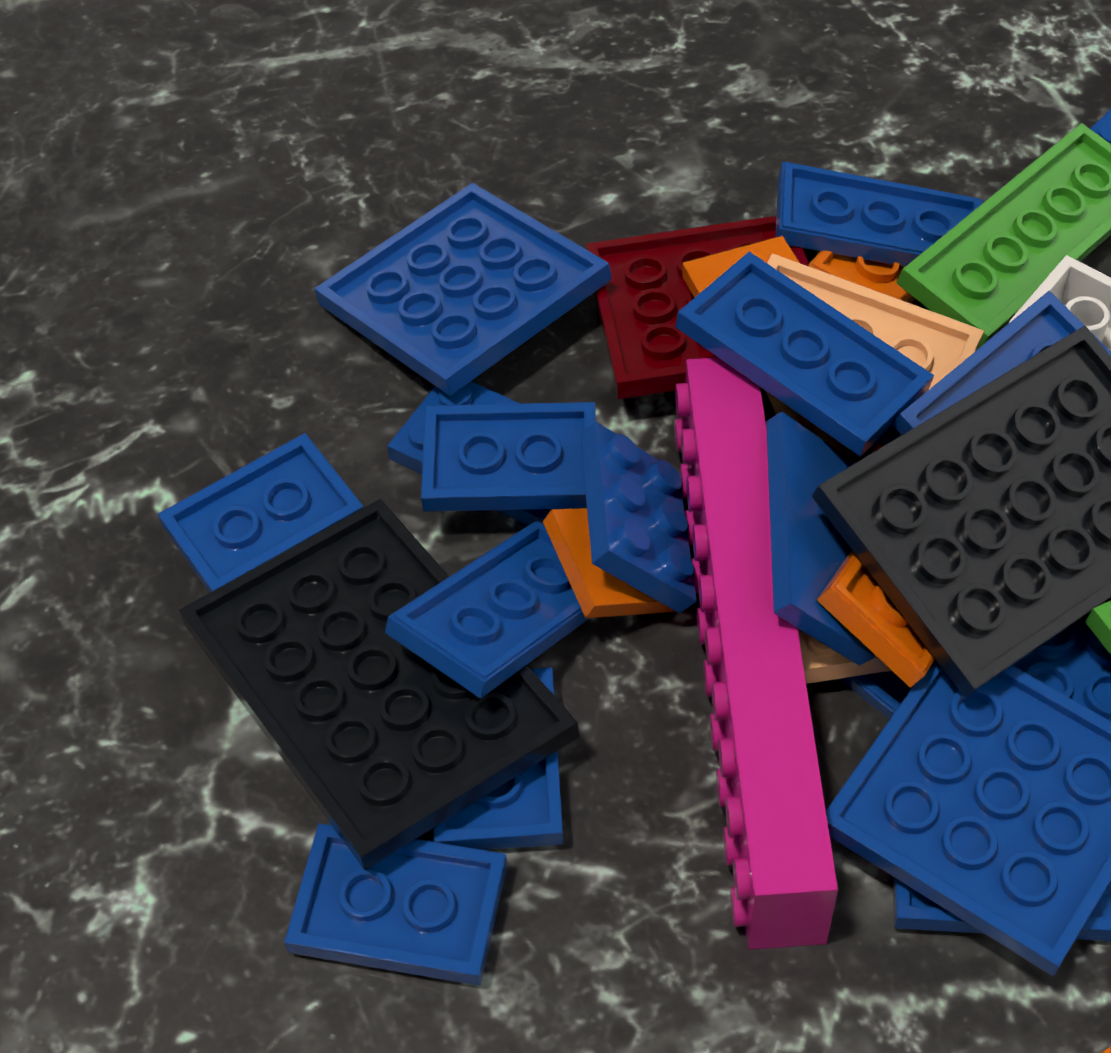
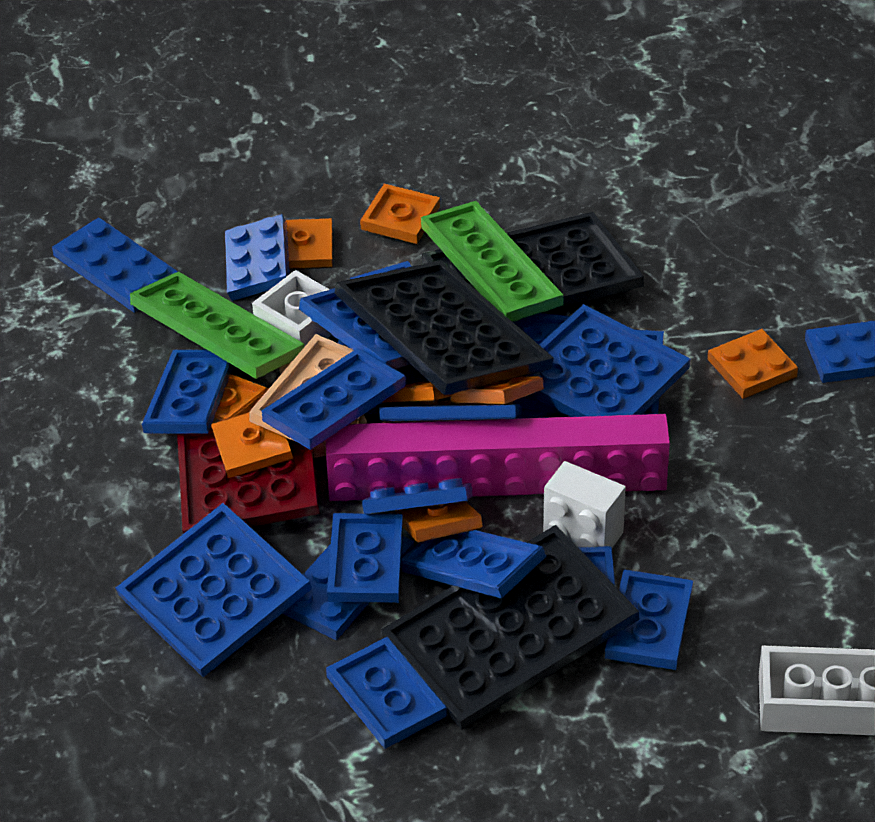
camera: 90 degrees left, 10 degrees down
(625, 772) = (584, 506): none -> white brick

